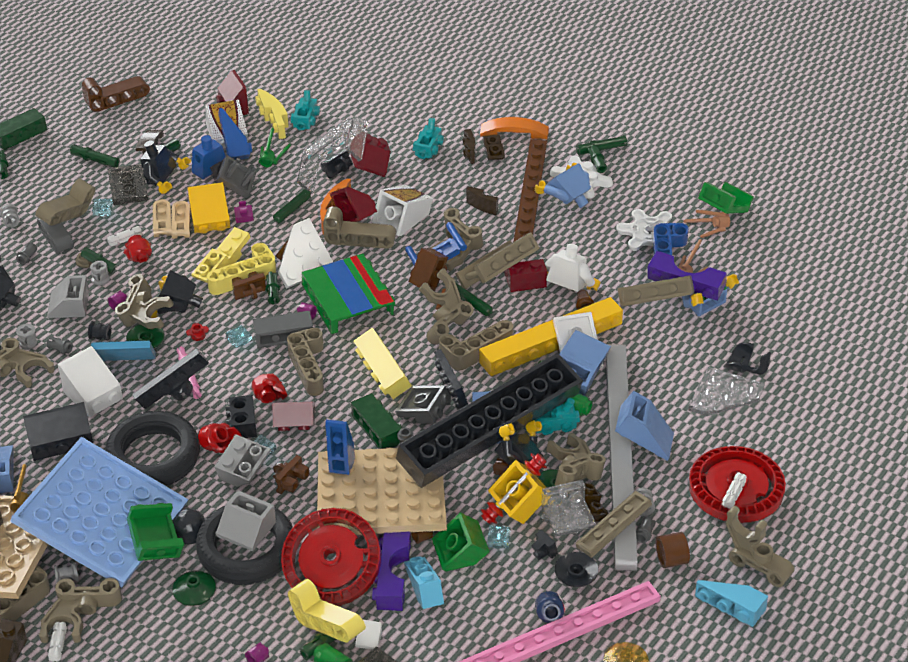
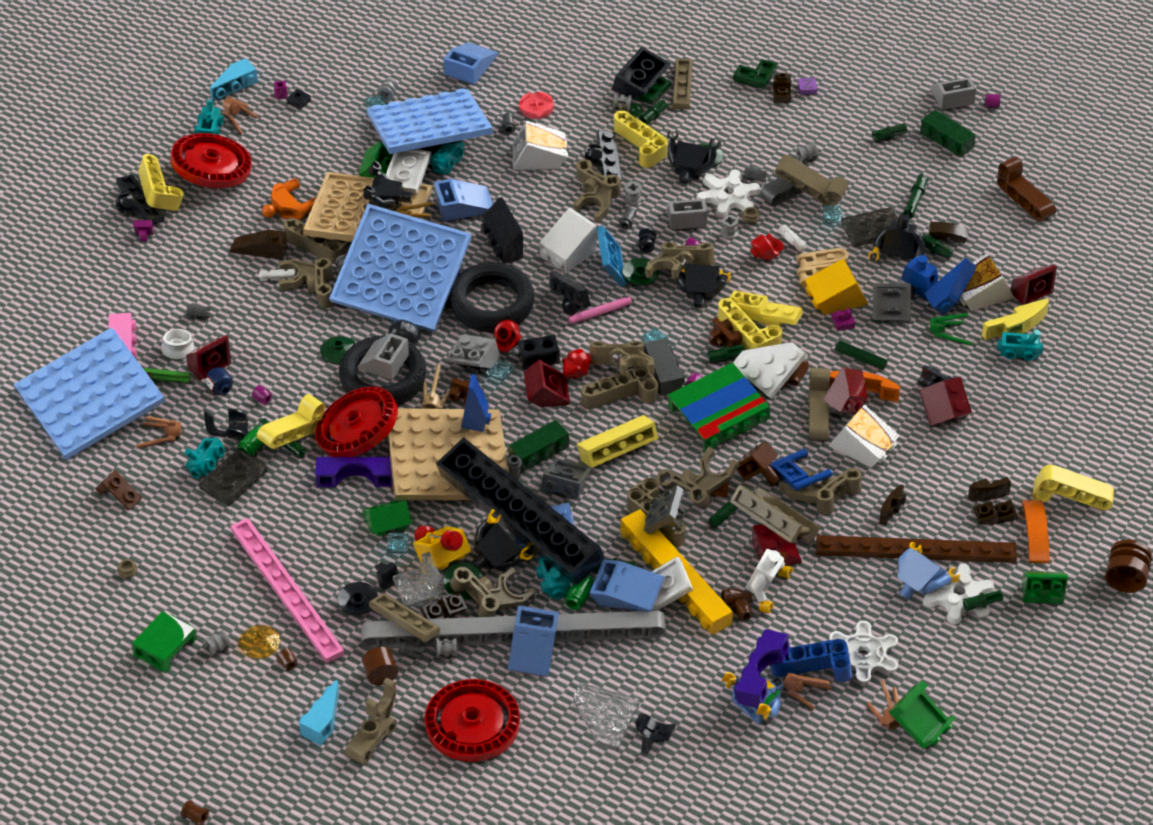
camera: 85 degrees right, 5 degrees up
(34, 272) = (724, 201): none -> white plate
(92, 256) = (744, 222): dark green axle -> none
(154, 532) = (382, 307): green panel -> none
(197, 332) = (656, 308): red plate -> none
(267, 347) = (631, 353): none -> dark tan piece
(296, 502) = (433, 400): none -> tan plant
(349, 132) = (926, 363): clear windscreen -> none
(370, 636) = (284, 464): white slope -> none
(424, 582) = (337, 494): medium azure slope -> none
(428, 140) = (988, 452): teal brick -> none
(448, 377) = (590, 490): black plate -> none
(475, 102) = (1072, 486): none -> light yellow beam
(496, 321) = (664, 511): none -> dark grey plate
(549, 607) = (310, 579): dark blue head -> none
(568, 79) = (1128, 566): none -> reddish brown wheel
(583, 124) = (1044, 587): none -> green slope
(598, 295) = (743, 609): none -> reddish brown hose
(602, 144) = (1013, 601): dark green pin -> none
(656, 291) = (742, 647): dark tan tile -> none
(656, 632) = (287, 659): none -> reddish brown hose
(734, 490) = (448, 707): white axle -> none

